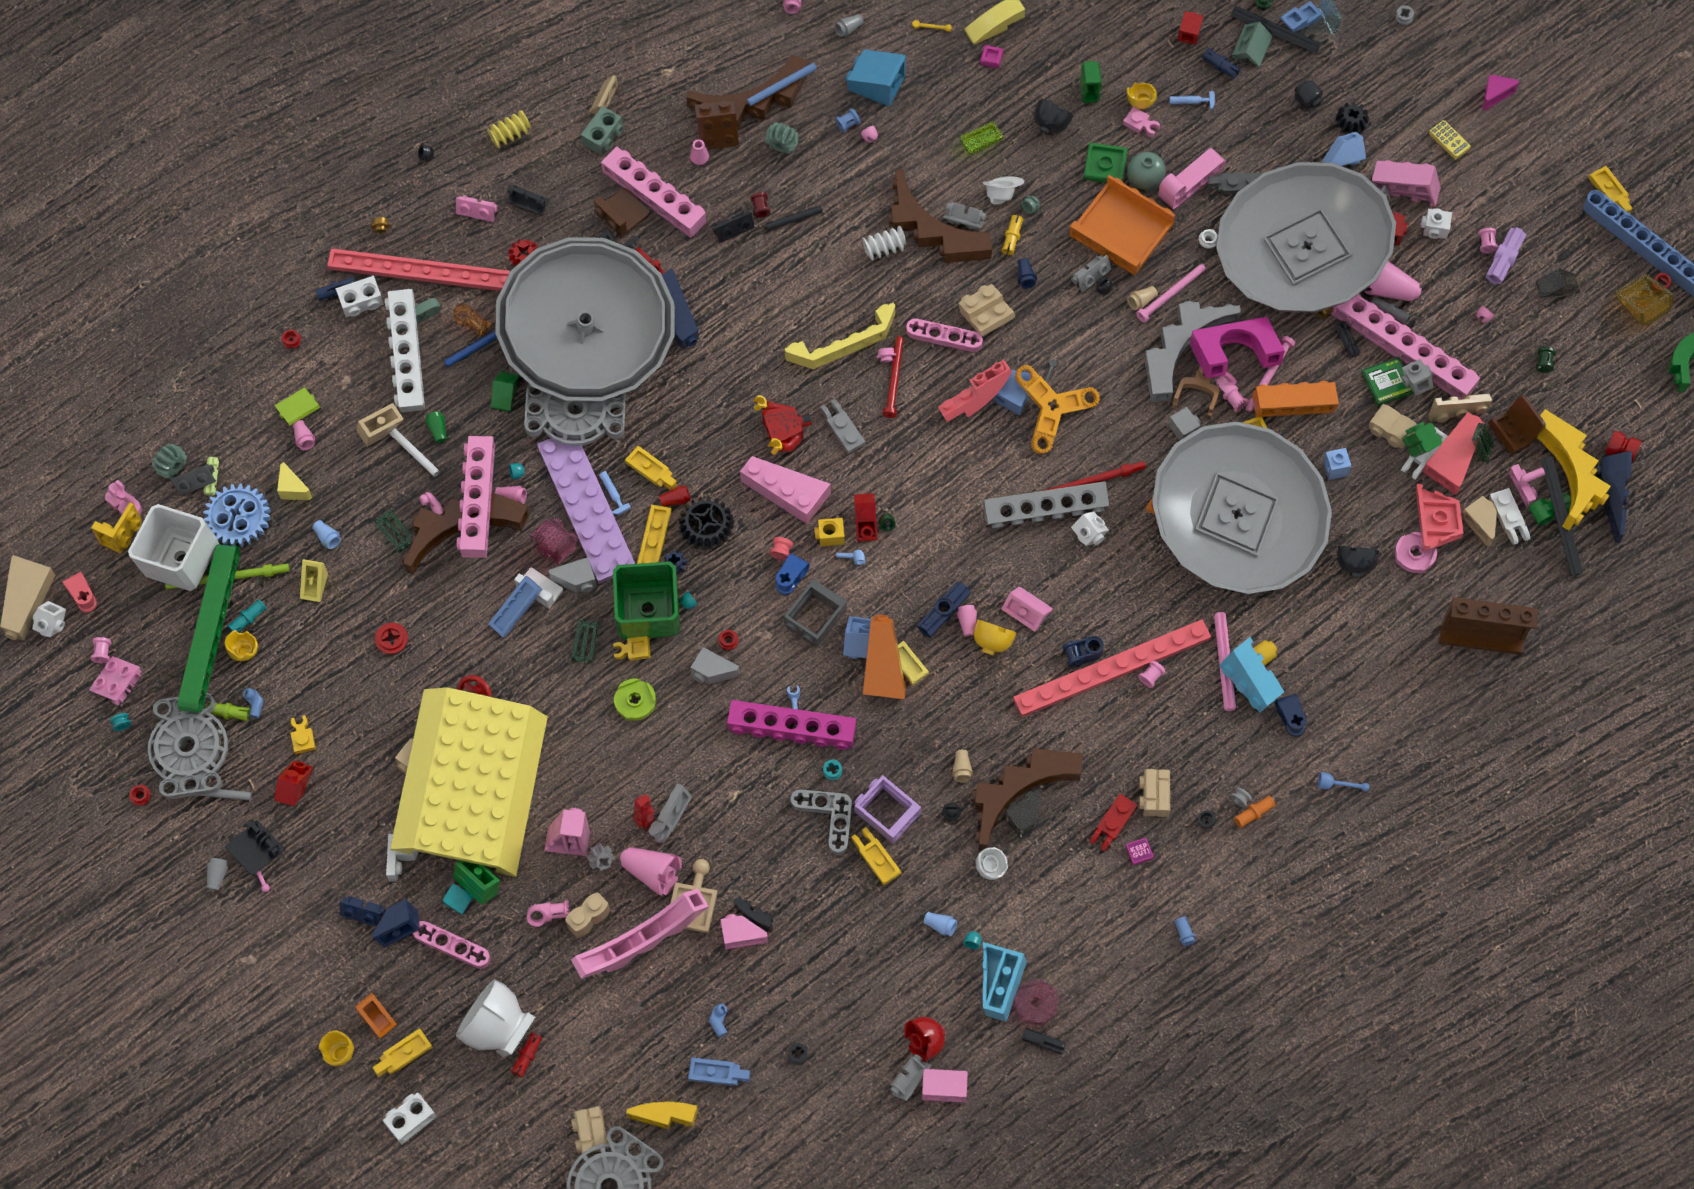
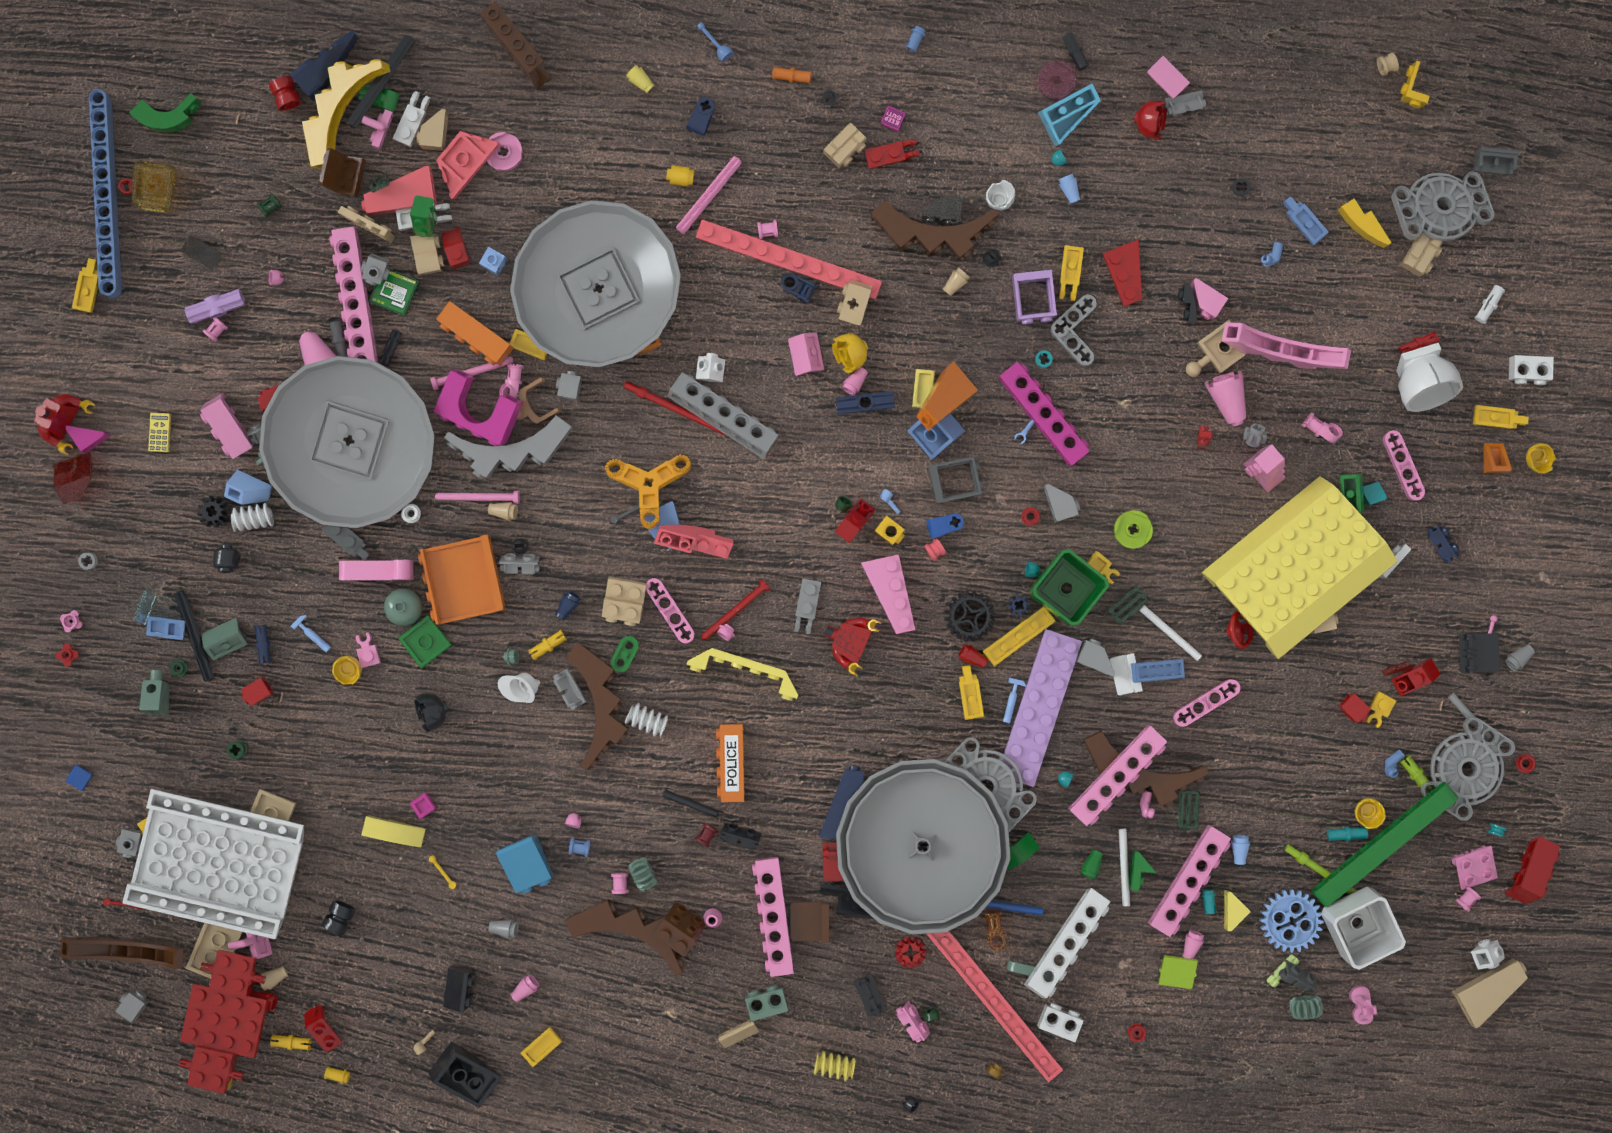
camera: 135 degrees left, 20 degrees up
(62, 715) = (1535, 871): none -> red wedge
(80, 590) = (1447, 962): coral piece -> none
(119, 536) = (1386, 975): yellow bracket -> none
(312, 580) = (1279, 819): light yellow slope -> none
(315, 779) = (1397, 668): none -> clear red pin
(321, 480) = (1209, 901): none -> teal pin
(322, 293) = (1070, 1046): dark blue pin -> none
(324, 715) = (1354, 708): none -> red brick
(344, 429) = (1189, 869): none -> bright pink brick
(379, 424) = (1133, 900): tan slope -> none
(396, 453) = (1138, 865): none -> green slope
(396, 923) = (1429, 510): dark blue slope -> none
(397, 631) = (1268, 723): red gear -> none
(449, 619) = (1207, 704): none -> bright pink beam
(466, 223) = (931, 1016): none -> dark green hinge
(493, 1144) = (1490, 304): none -> white pin
(513, 492) = (1085, 762): bright pink cone -> none
(521, 649) = (1170, 632): none -> white bar
(554, 540) = (1089, 695): clear pink brick -> none
(591, 912) = (1304, 403): tan brick -> none
(670, 814) = (1181, 424): light grey hinge -> none
(781, 84) = (603, 917): medium blue bar -> none
(790, 268) = (731, 762): none -> orange brick
(793, 120) = (619, 883): none -> bright pink bush
(832, 898) = (1124, 269): none -> red wing
(947, 277) = (624, 654): none -> green plate
(981, 137) = (496, 743): clear neon green plate -> none
(1026, 675) = (861, 293): none -> tan brick
(1090, 82) = (375, 712): green brick -> none
(1241, 797) = (791, 92): light grey bush -> none
(1251, 677) = (706, 163): medium azure wedge -> none
(1320, 137) = (251, 518): none -> white piece
(1357, 560) = (550, 180): black cylinder -> none
(1371, 701) = (640, 79): none -> light yellow cone
(1375, 449) = (455, 249): none -> red slope
(1436, 223) = (234, 370): white brick -> none
(1477, 55) = (72, 477): none -> clear red slope
(1533, 84) = (57, 414): none -> red torso

